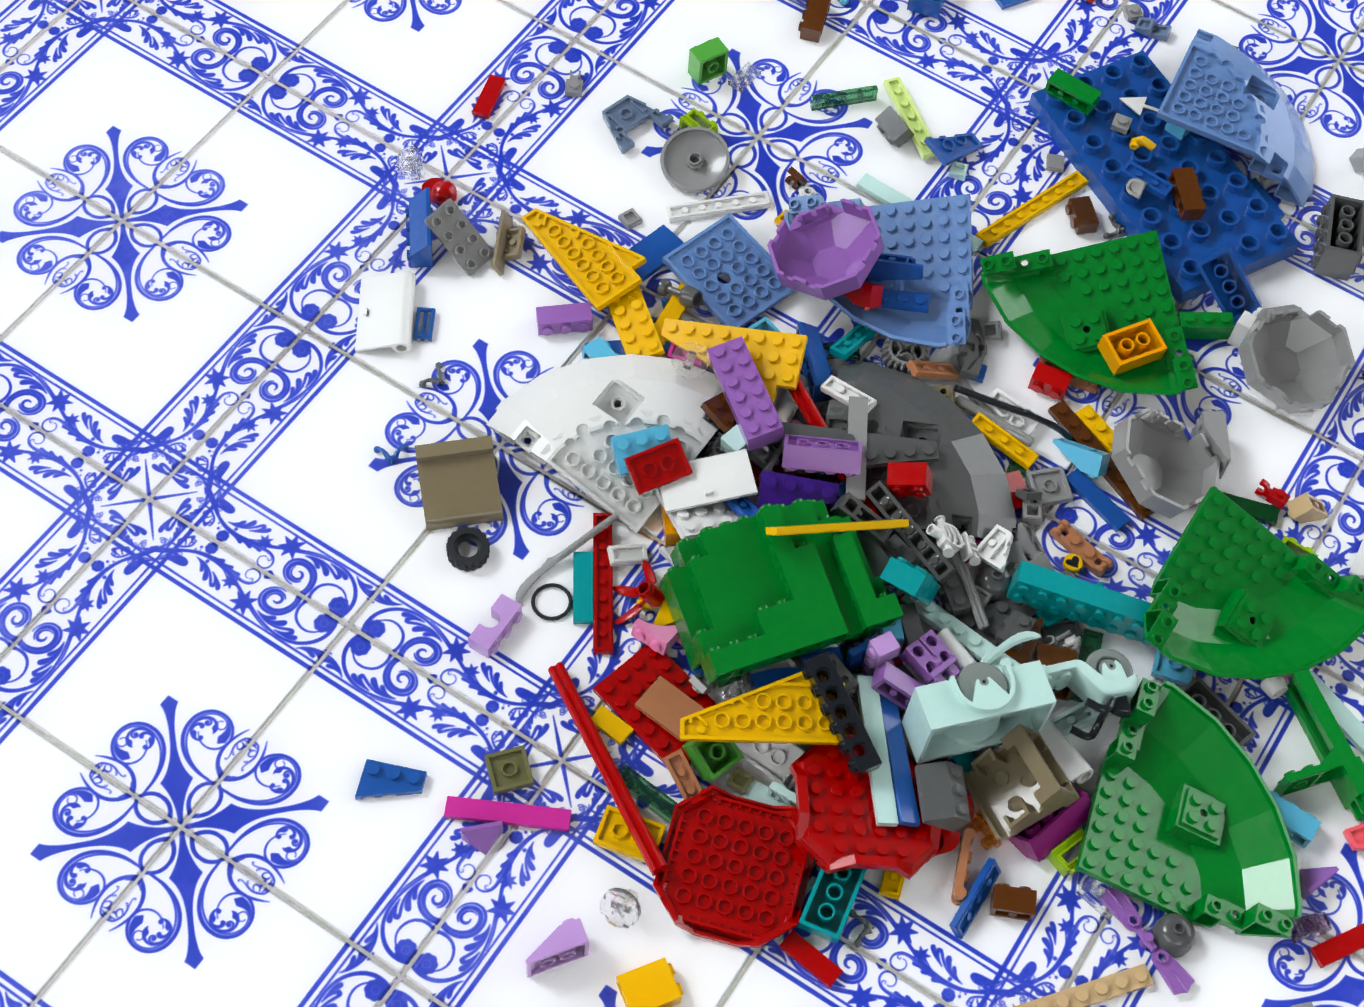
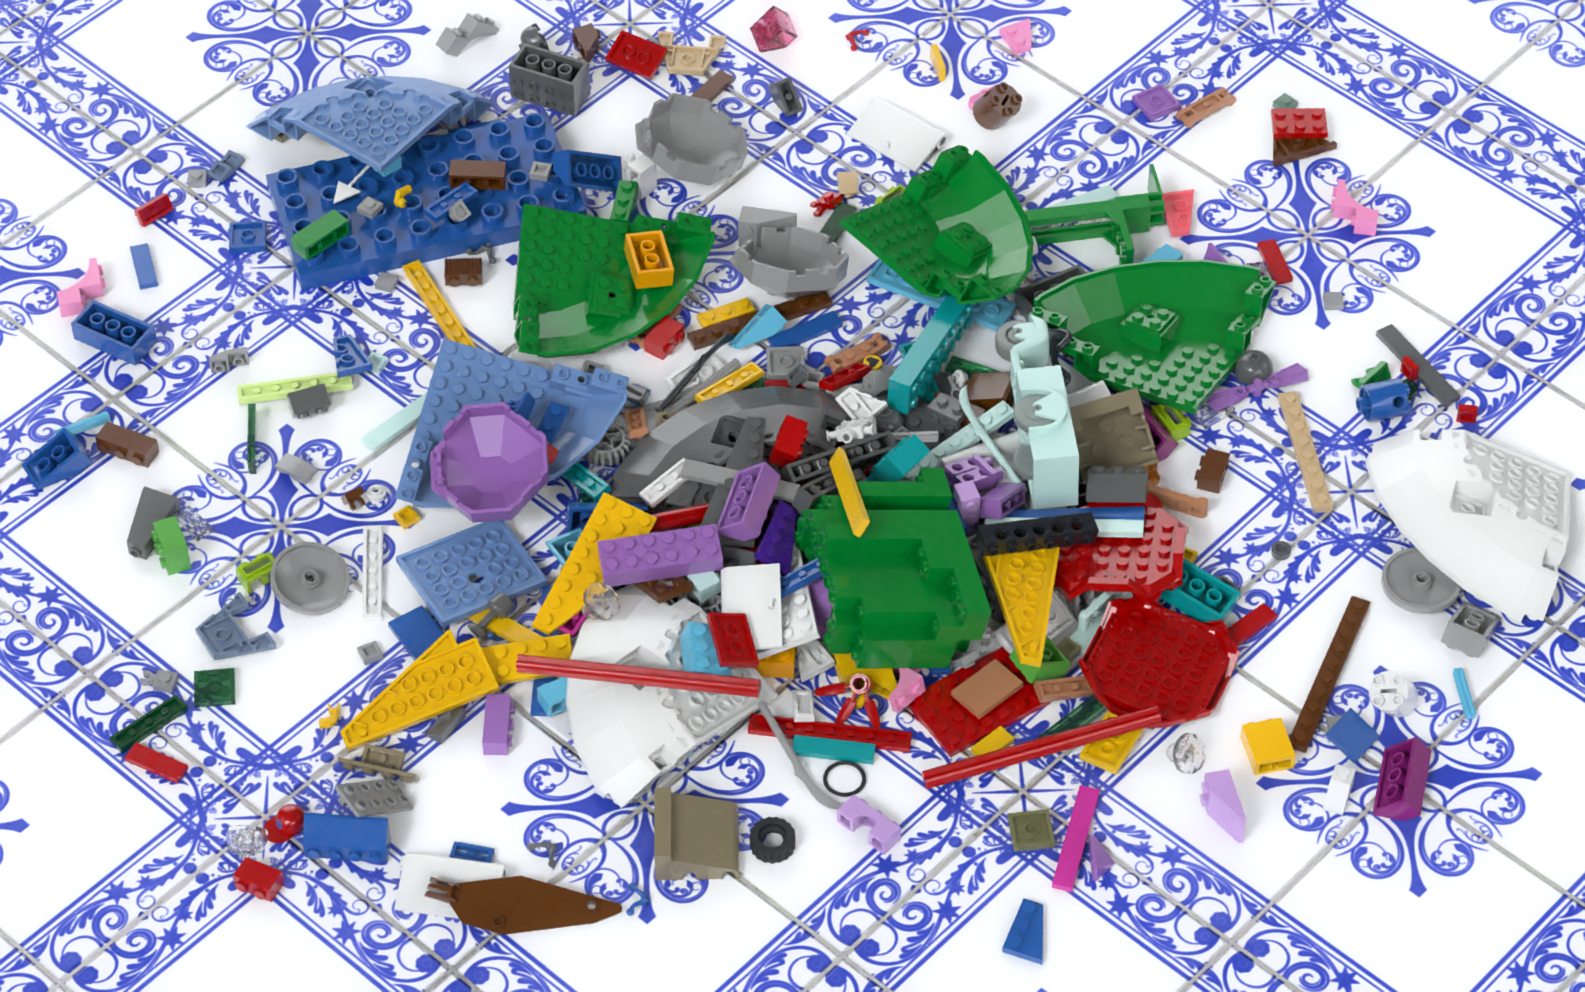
camera: 75 degrees left, 10 degrees down
(370, 364) = (519, 904): none -> reddish brown wing
(376, 180) = (258, 879): none -> red brick
(529, 85) = (148, 723): none -> dark green tile
(550, 202) = (330, 721): none -> yellow arm
(560, 284) = (446, 724): none -> dark grey slope
(573, 120) = (214, 687): none -> clear green plate
(602, 415) = (638, 675): none -> axle
(741, 45) = (151, 508): none -> dark grey slope
(818, 132) = (296, 467): none -> light grey slope
(923, 985) = (1281, 550): none -> dark grey tile
(927, 65) = (233, 357): none -> light grey slope
(975, 898) = (1191, 486): blue tile -> none
(1042, 537) = (844, 376): none -> red tile
(1076, 58) = (248, 237): none -> blue tile
(1209, 241) = (540, 171): none -> light grey plate

